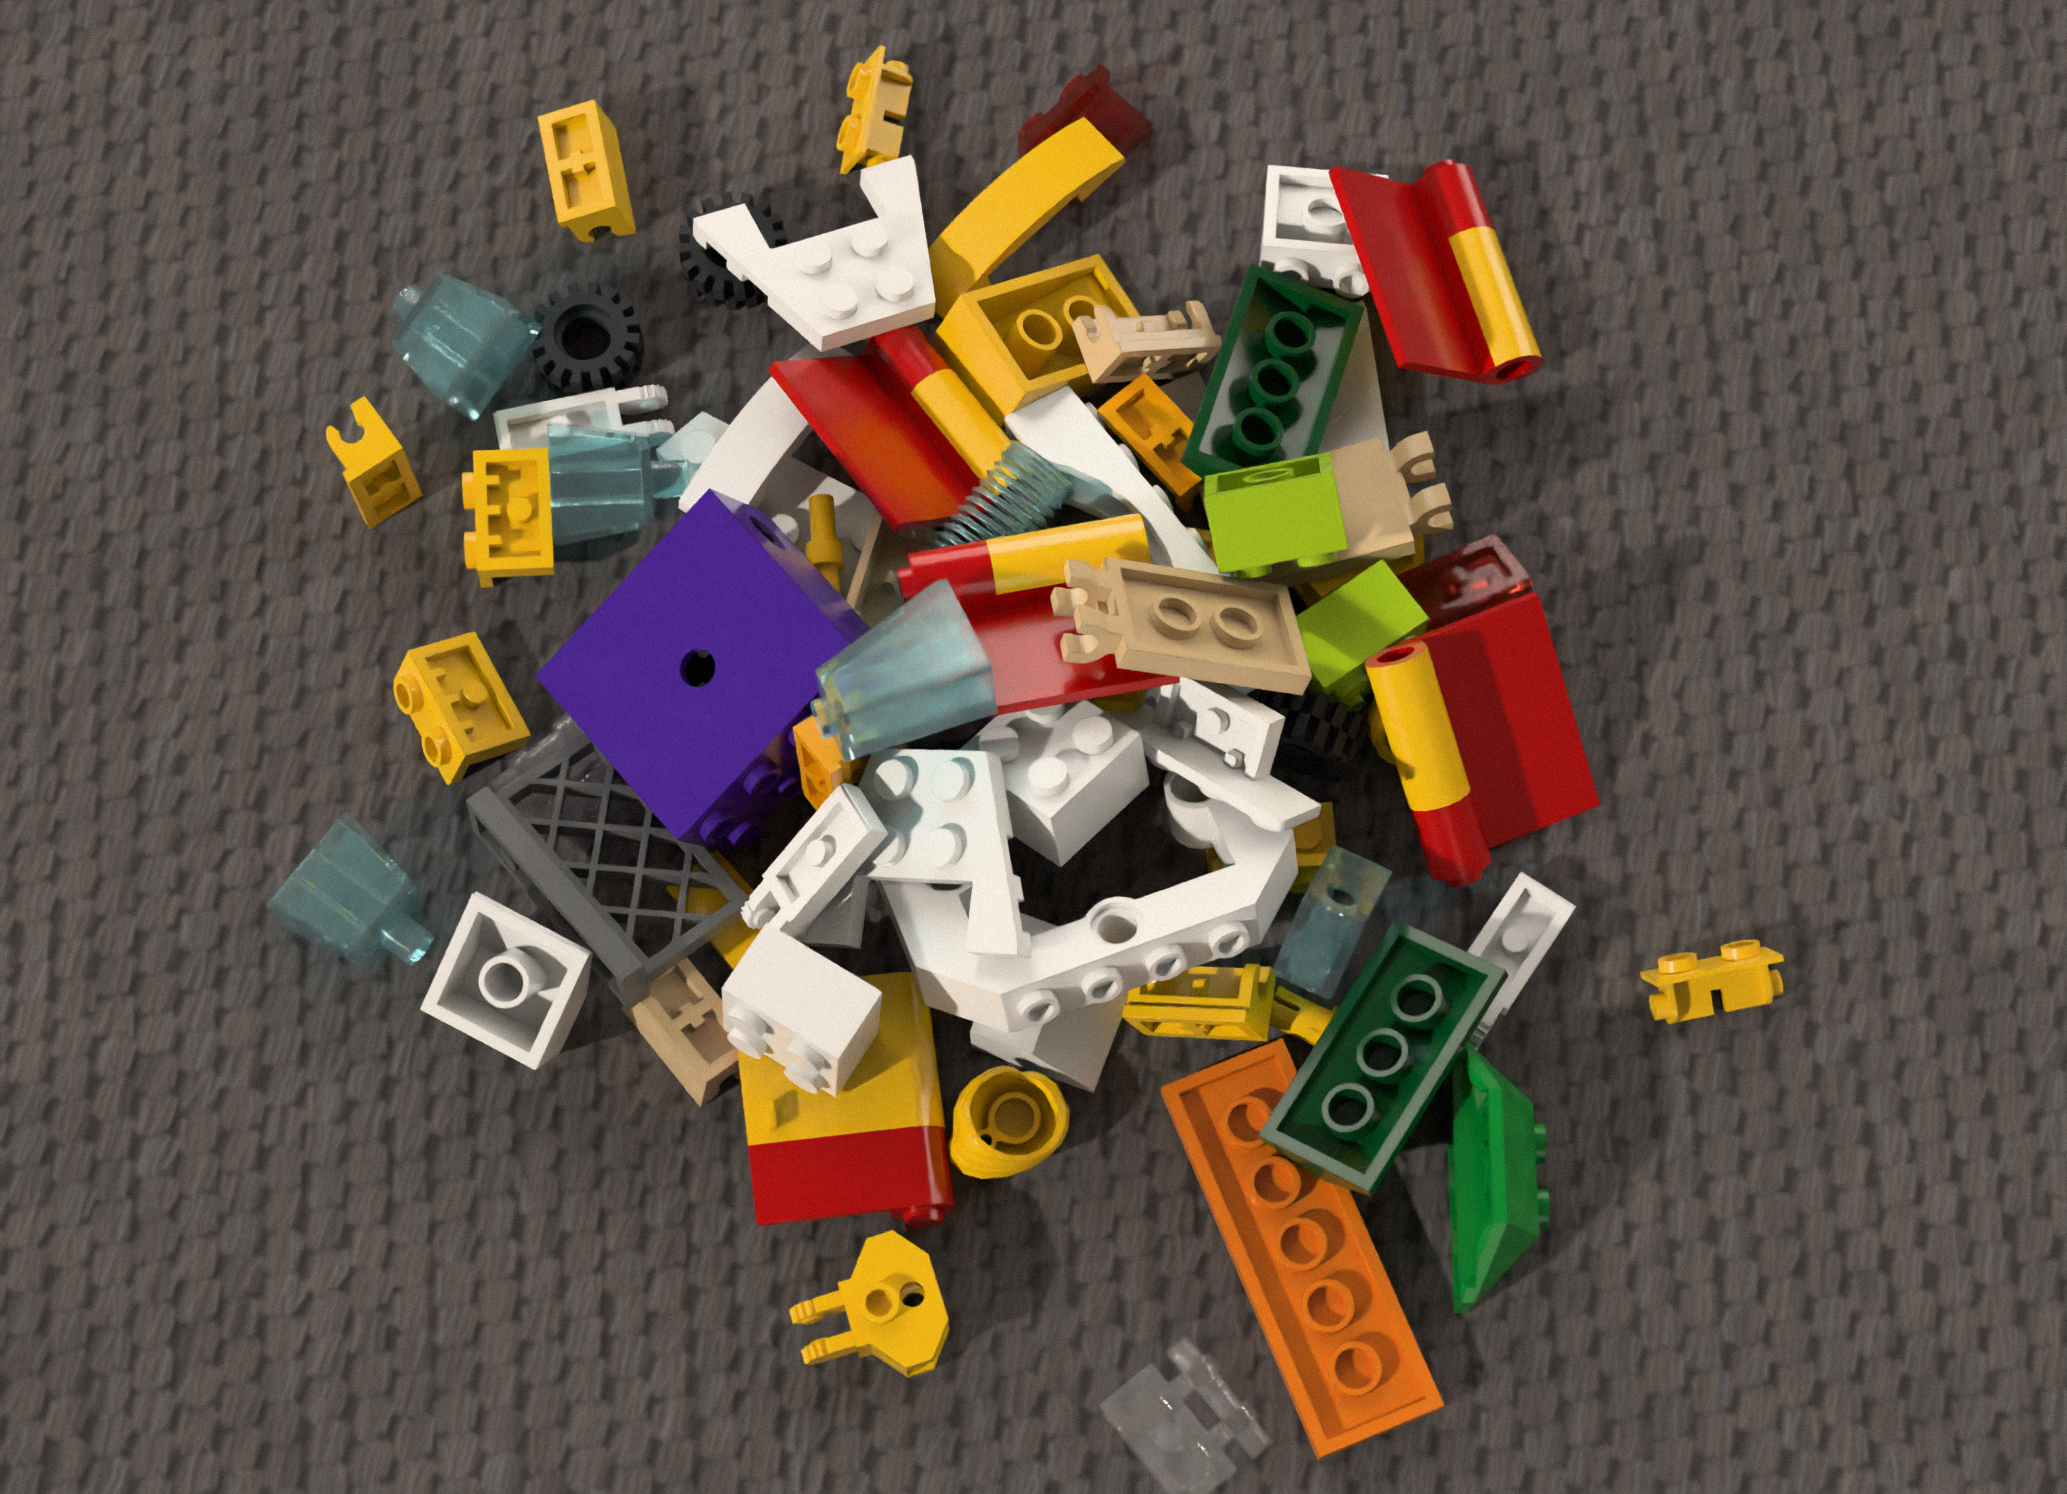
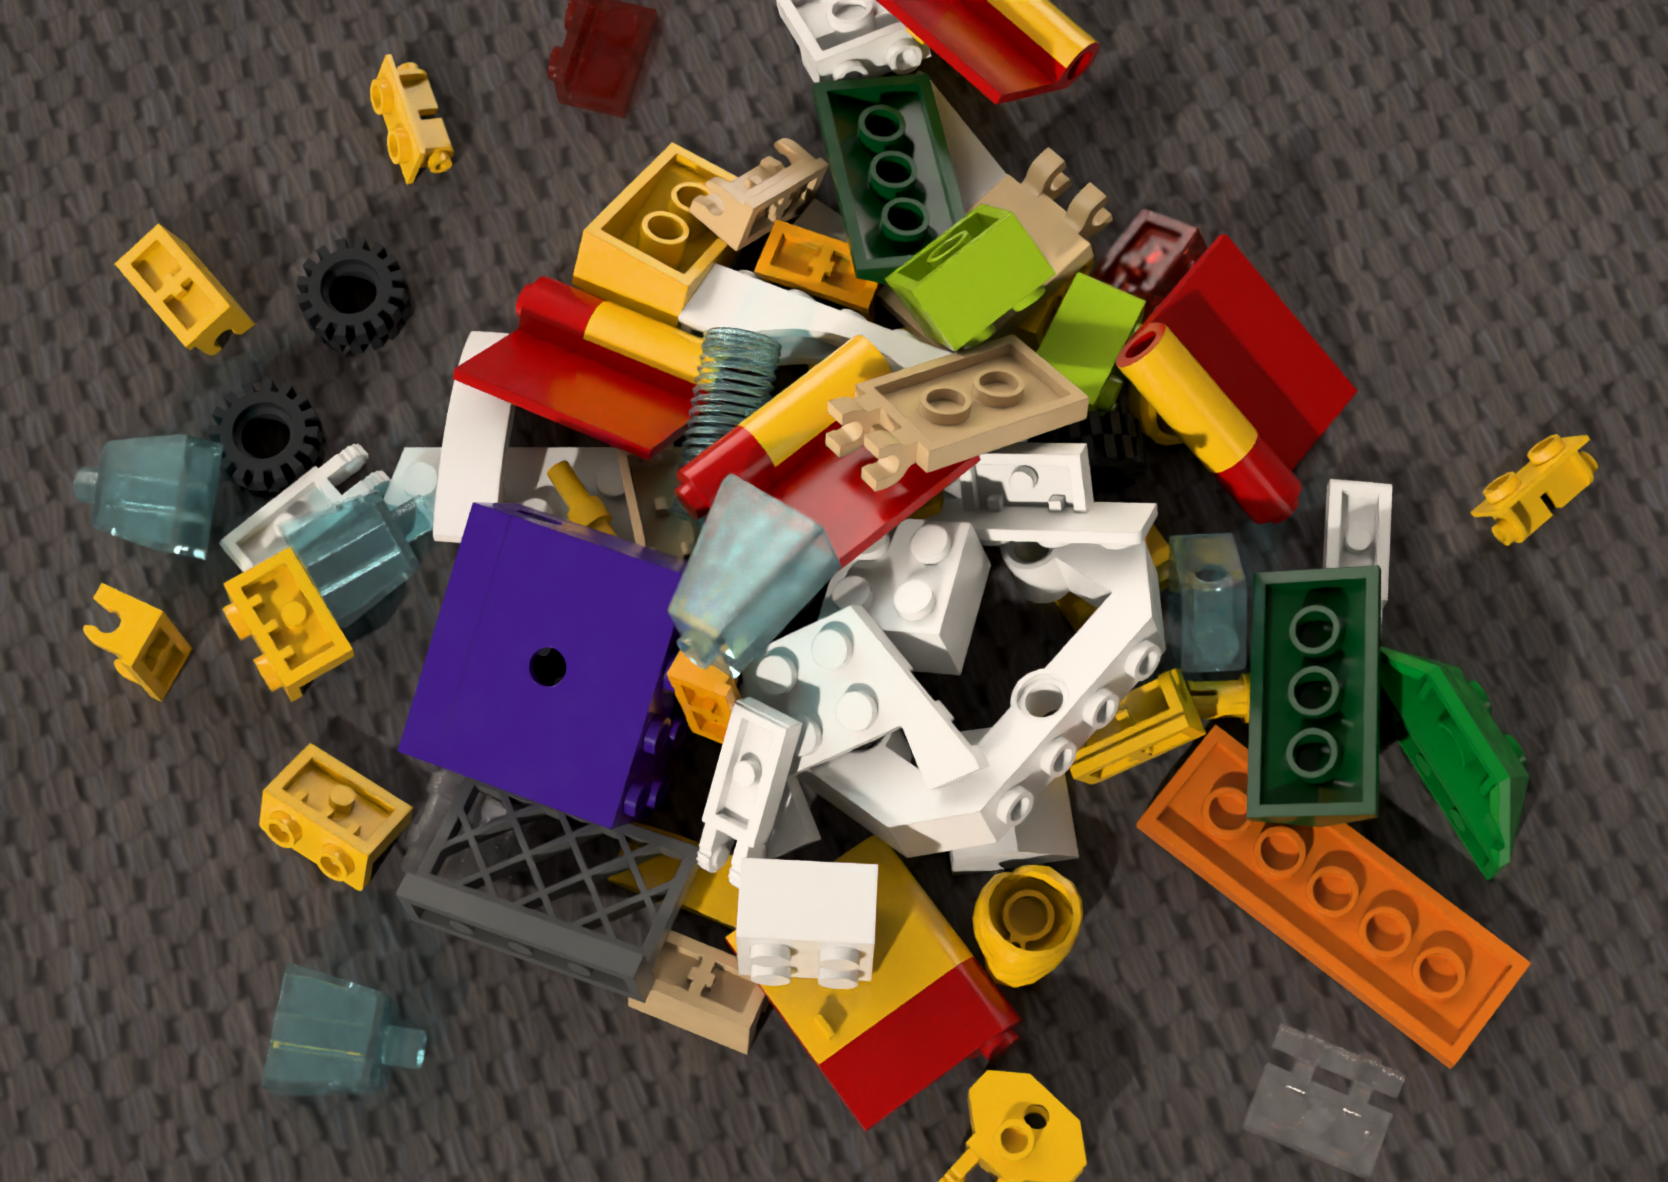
camera: 25 degrees left, 0 degrees up
(510, 982) = (524, 1035): white slope -> none
(844, 280) = (466, 274): white wing -> none
(1016, 207) = (580, 145): yellow slope -> none

